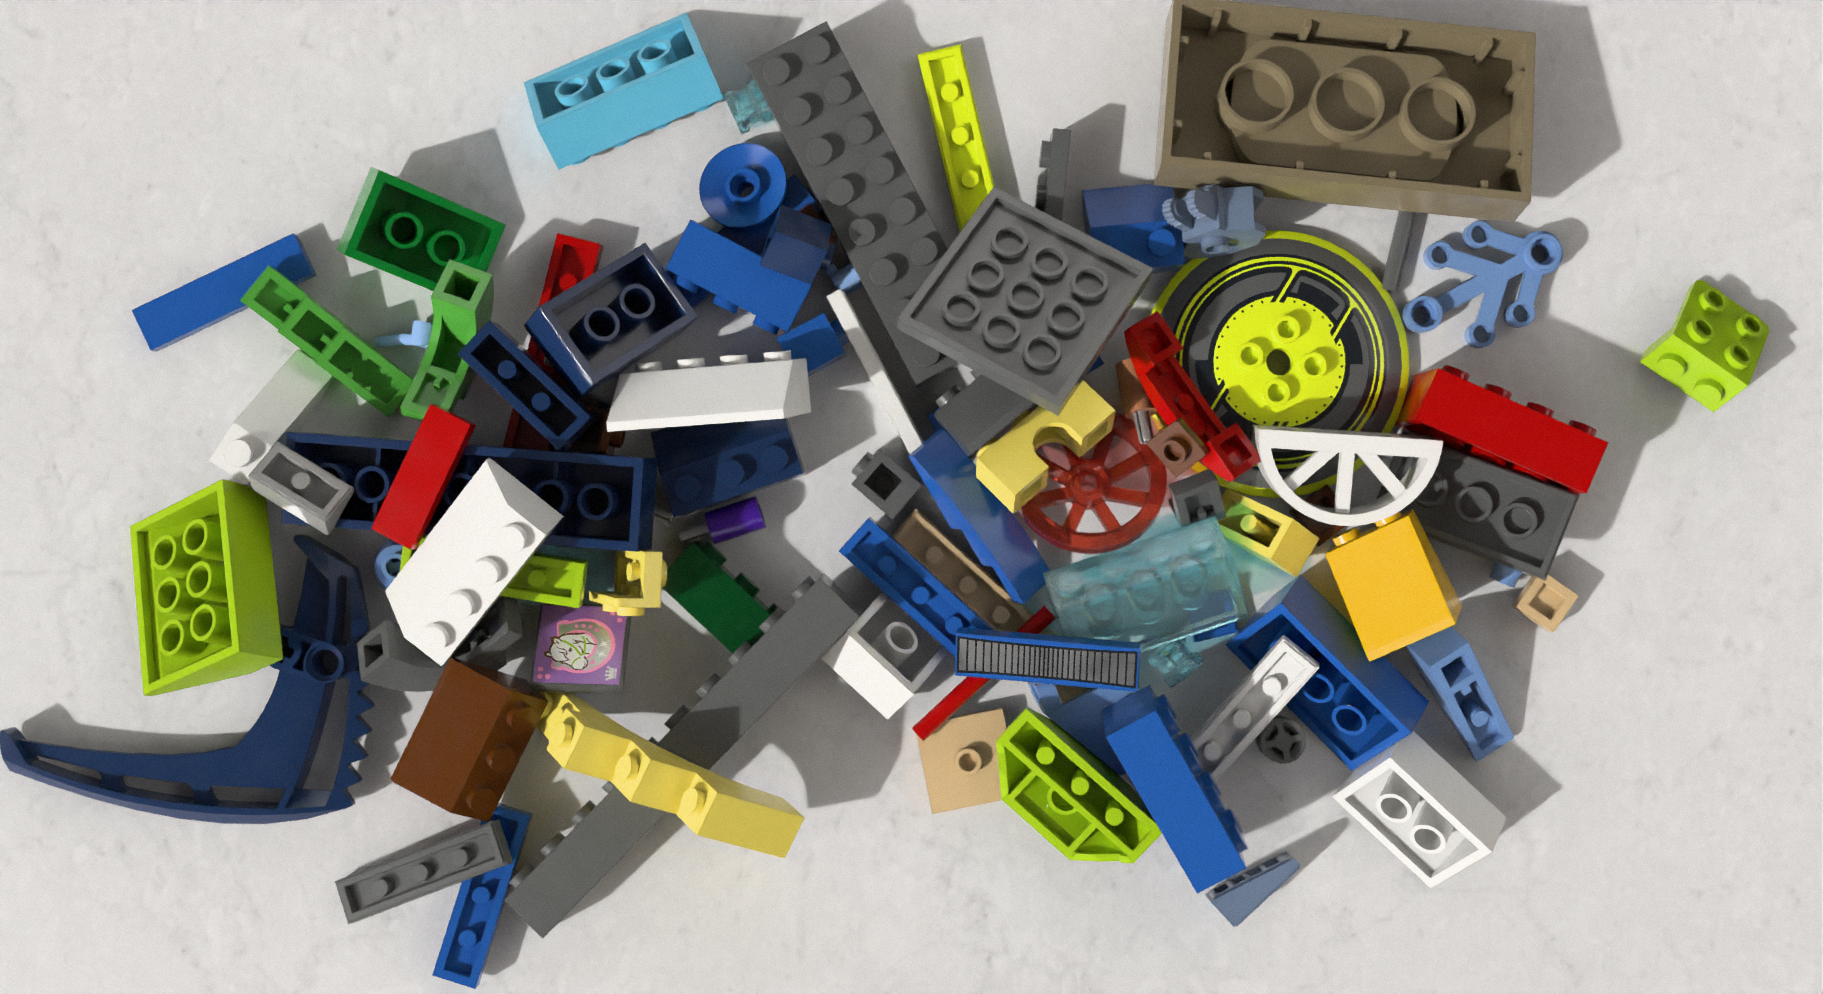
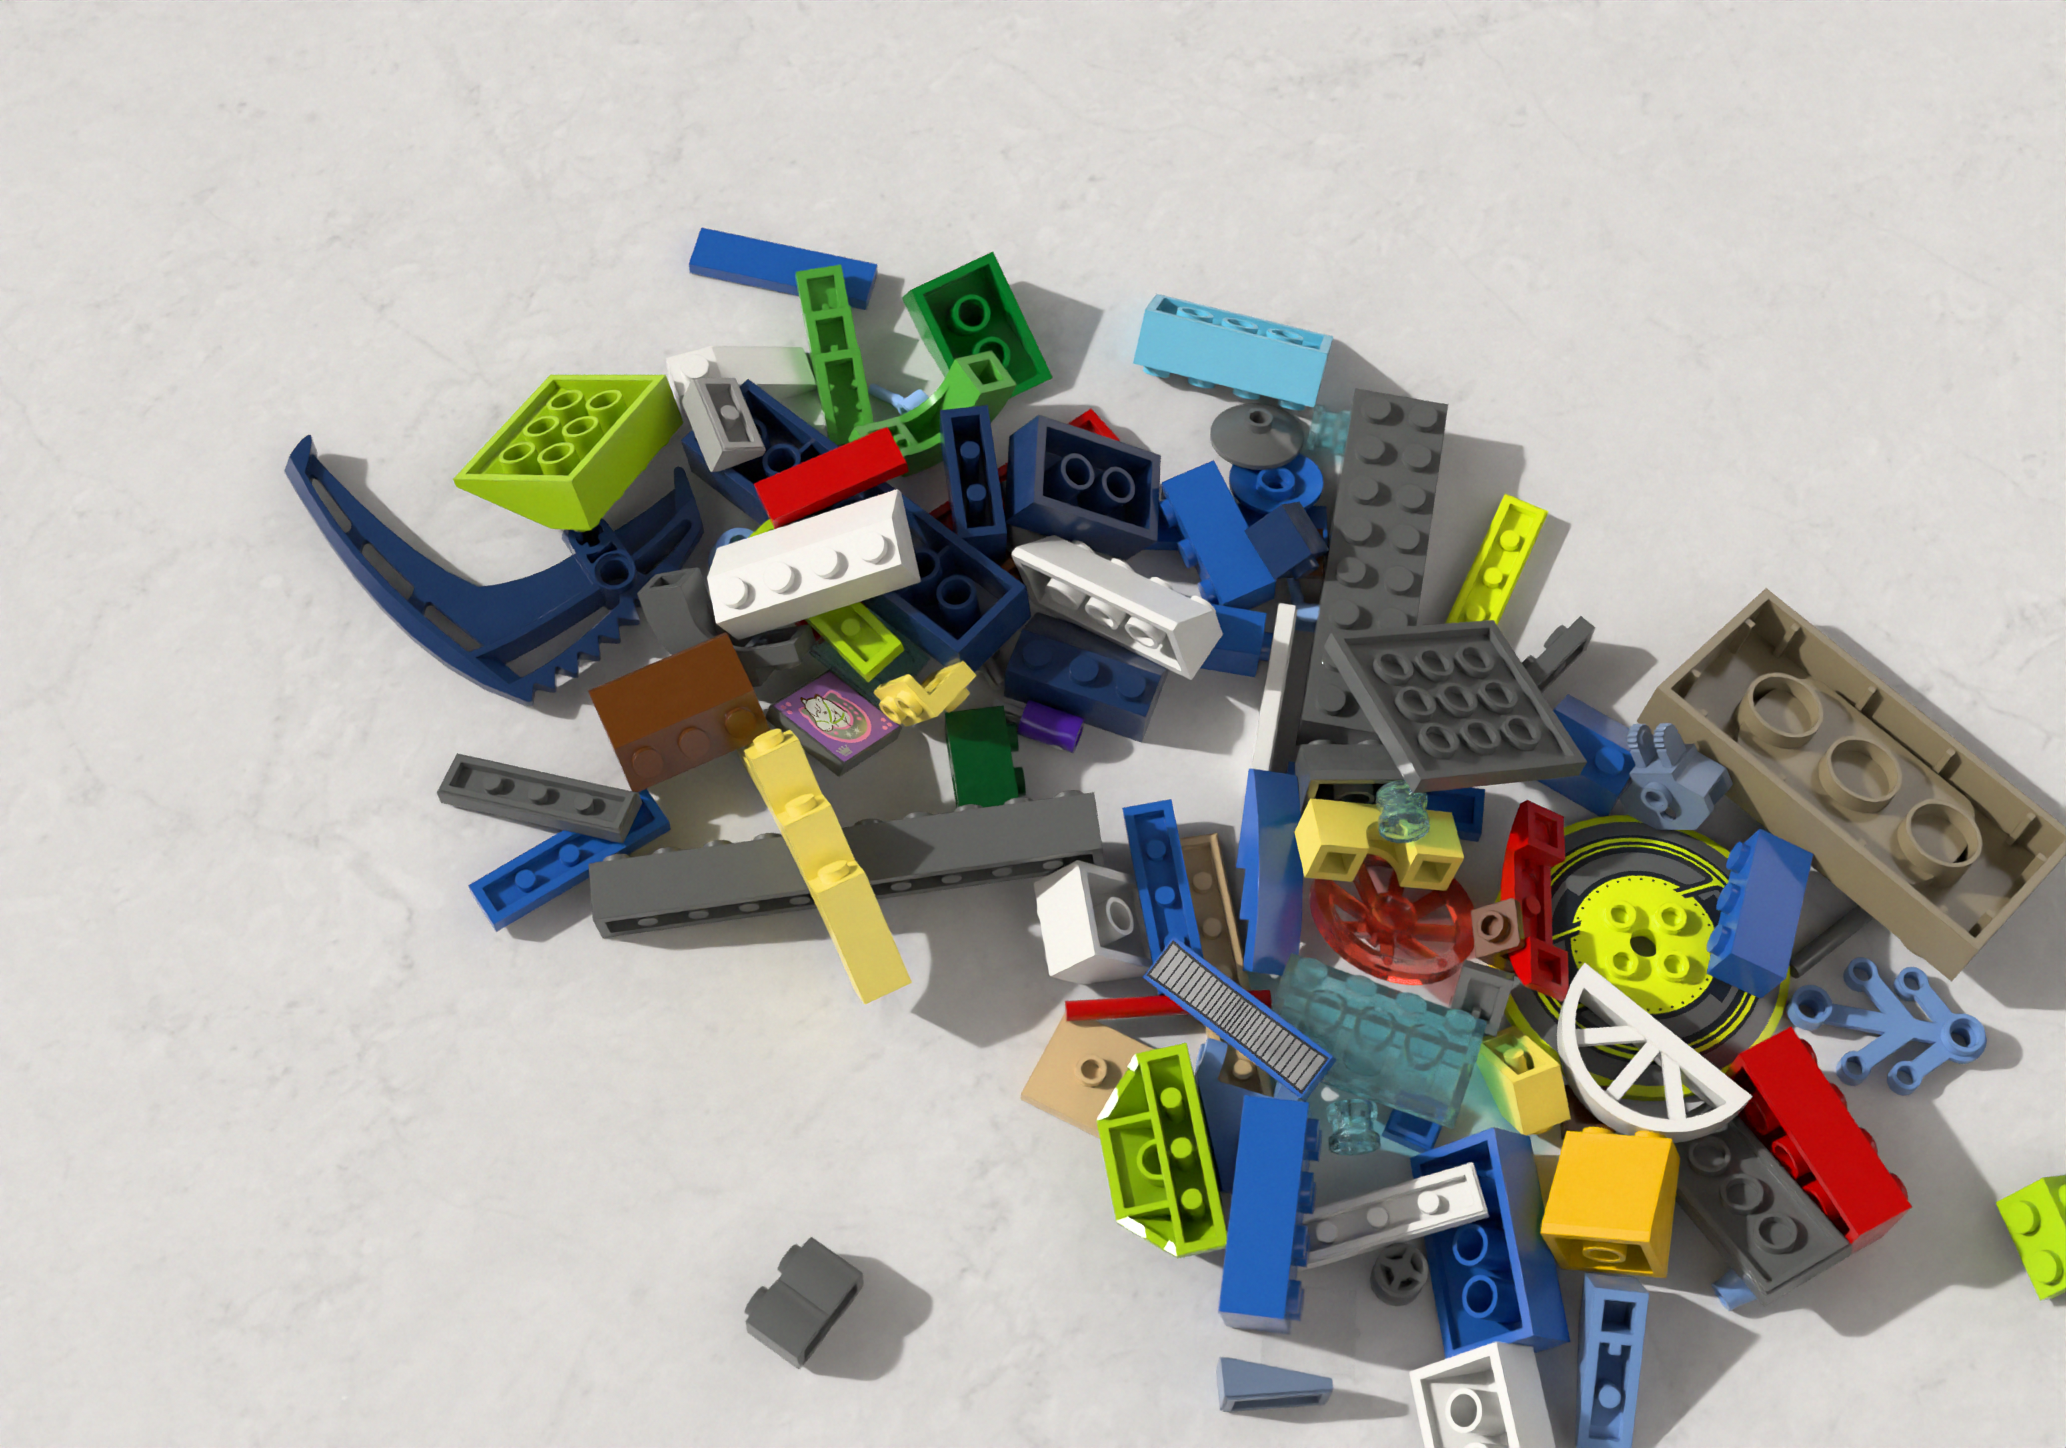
camera: 30 degrees right, 25 degrees down
(707, 166) = (1256, 436): none -> dark grey dish
(902, 487) = (1221, 803): dark grey brick -> none
(1049, 425) = (1402, 813): none -> clear light blue wheel
(1135, 400) = (1486, 882): nougat piece -> none
(1346, 277) = (1759, 913): none -> blue brick
(1545, 602) = (1751, 1343): tan plate -> none

